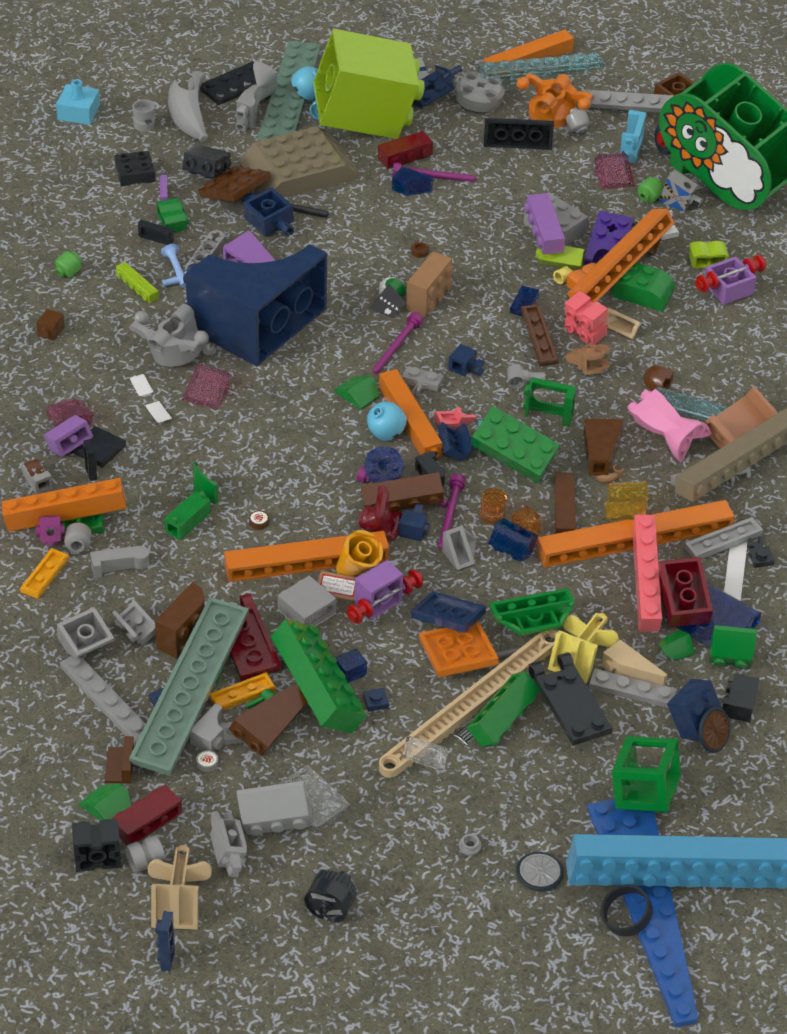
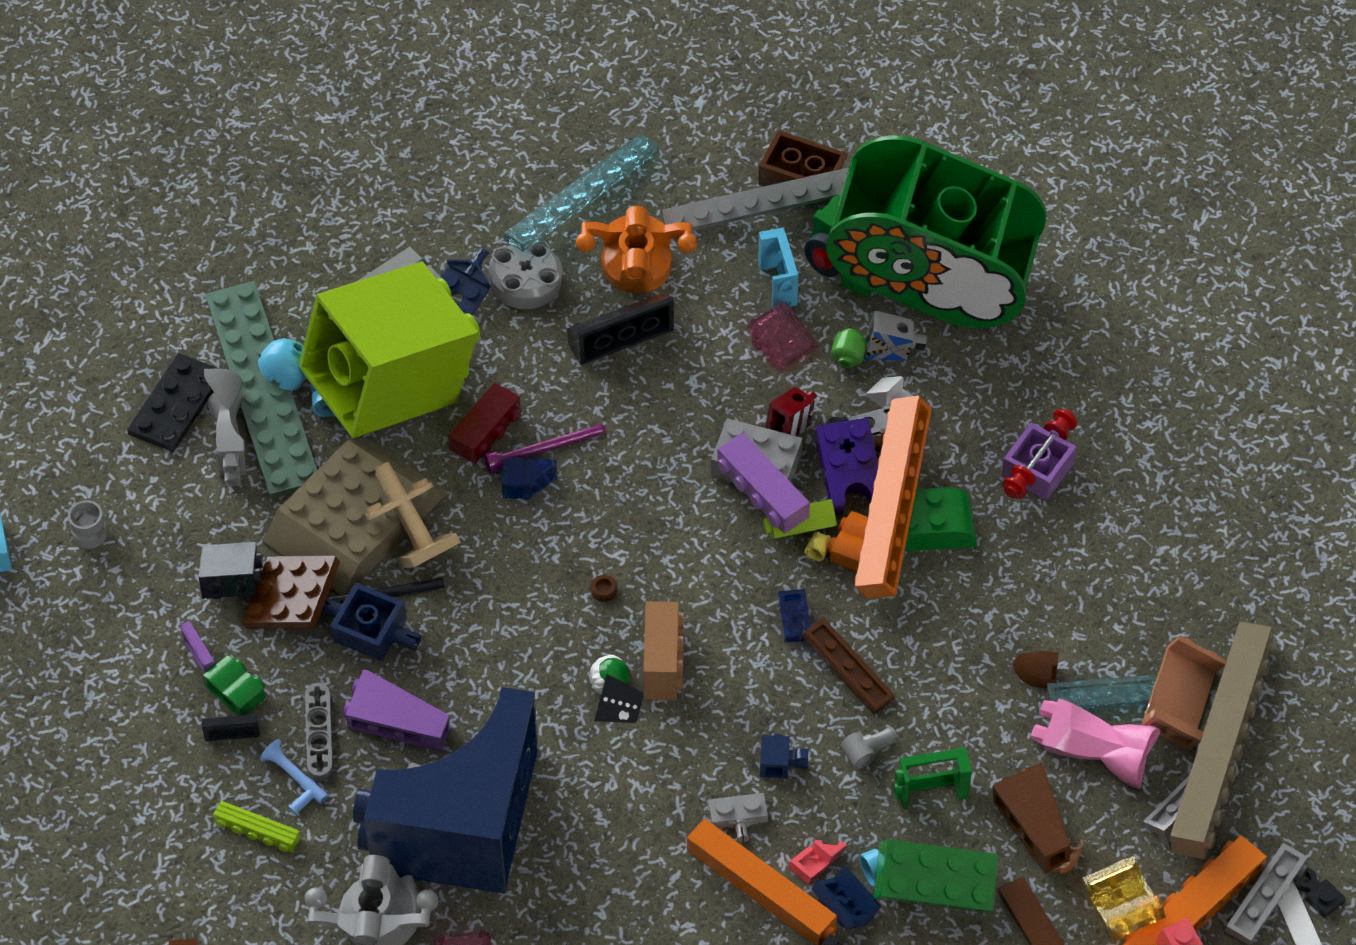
camera: 25 degrees left, 10 degrees up
(68, 264) = (143, 842): bright green head -> none
(134, 167) = (129, 623): black brick -> none
(185, 108) = (138, 483): light grey piece -> none
(325, 187) = (423, 545): none -> tan piece
(359, 391) = (666, 871): green slope -> none
(386, 420) = (751, 907): medium azure cylinder -> none
(413, 321) = (670, 717): magenta piece -> none
(550, 45) = (554, 171): orange brick -> none
(578, 121) = (687, 269): light grey head -> none
(586, 318) = (898, 615): coral brick -> none
(590, 358) = (937, 677): medium nougat hinge -> none
(591, 202) = (791, 411): none -> dark red torso
(622, 323) = (939, 594): tan slope -> none
(707, 254) = (983, 426): lime brick -> none

